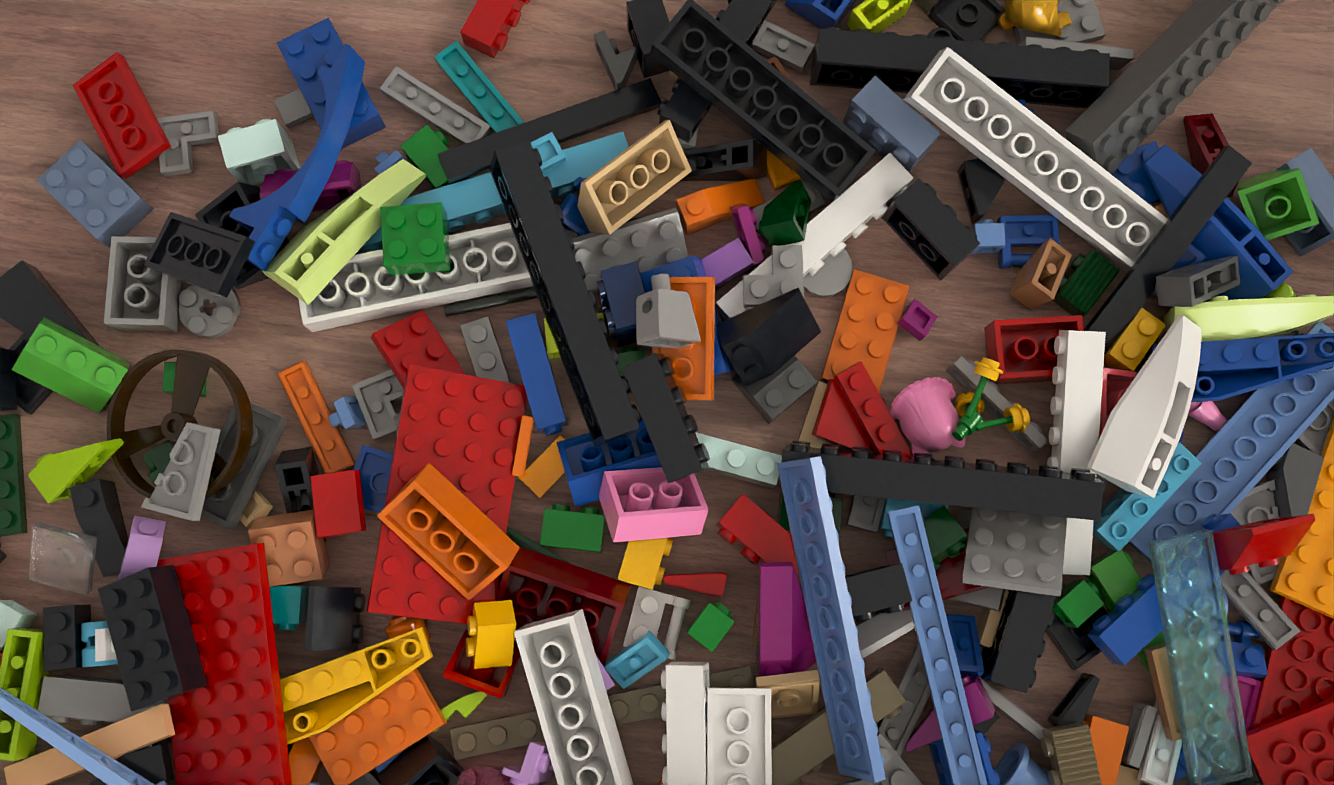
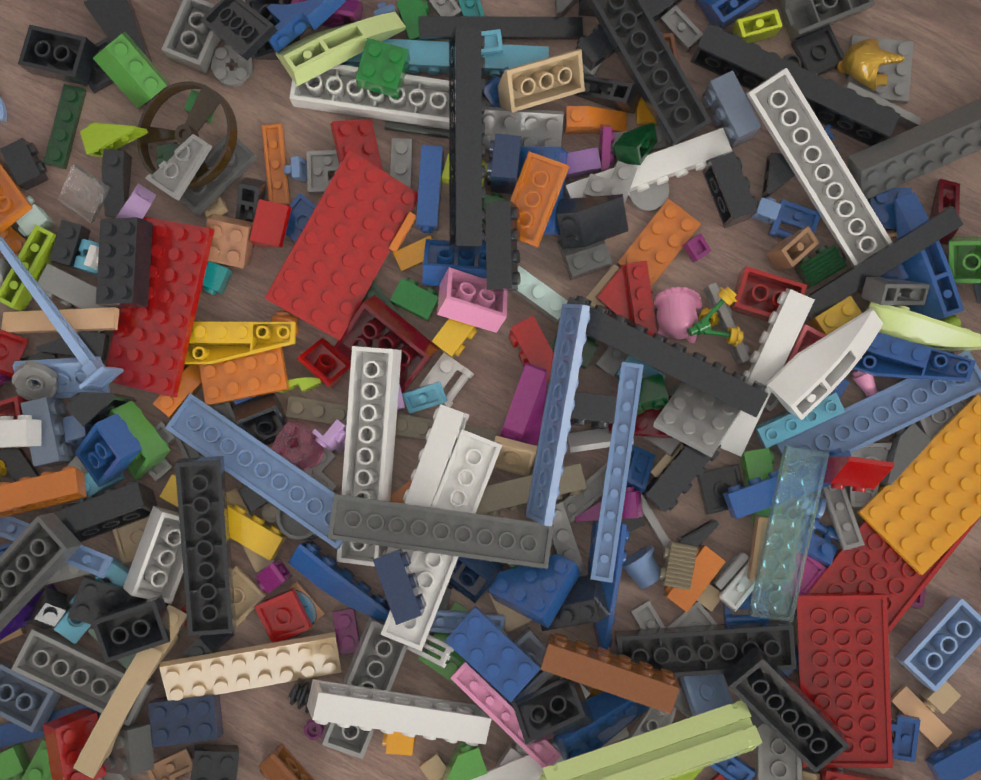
camera: 25 degrees right, 5 degrees up
(334, 618) = (241, 296): black slope -> none
(449, 532) = (334, 267): orange slope -> none
(491, 634) = (337, 344): yellow brick -> none
(665, 316) = (526, 179): light grey torso -> none
(705, 583) = (485, 365): red slope -> none
(711, 625) = (480, 392): green brick -> none
(1077, 603) = (725, 470): green brick -> none

